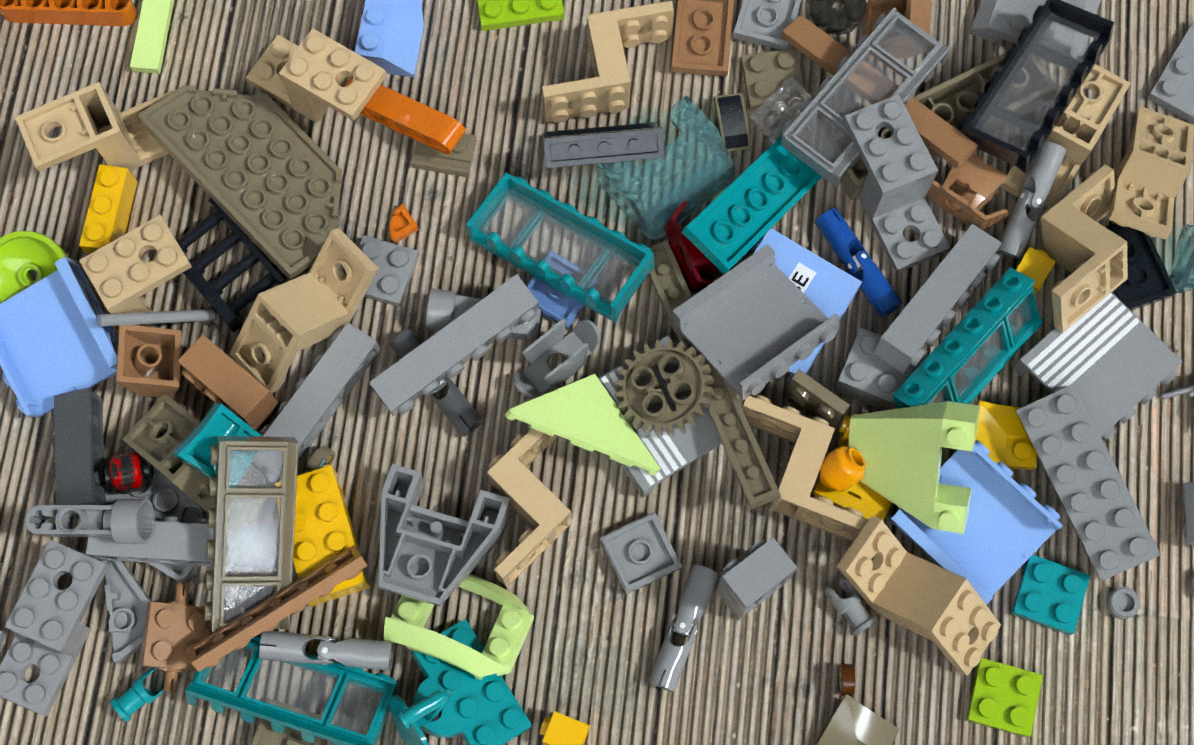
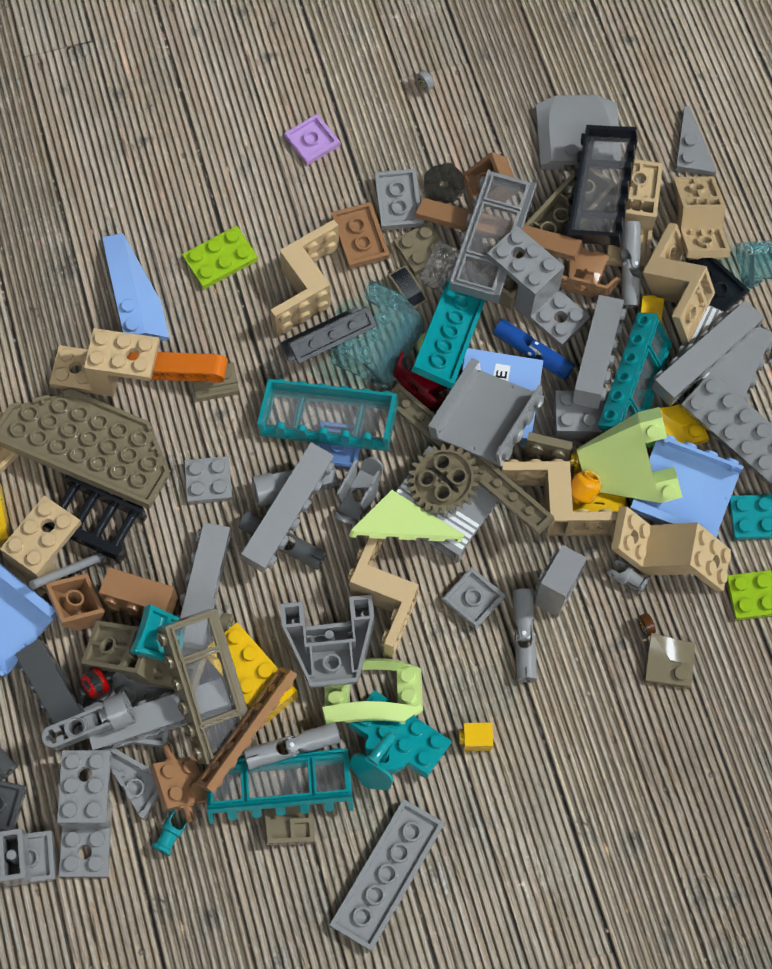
camera: 25 degrees left, 5 degrees down
(303, 310) = (171, 522): tan bracket -> none
(401, 224) = (208, 443): orange tile -> none
(1081, 355) = (707, 352): none -> light grey brick

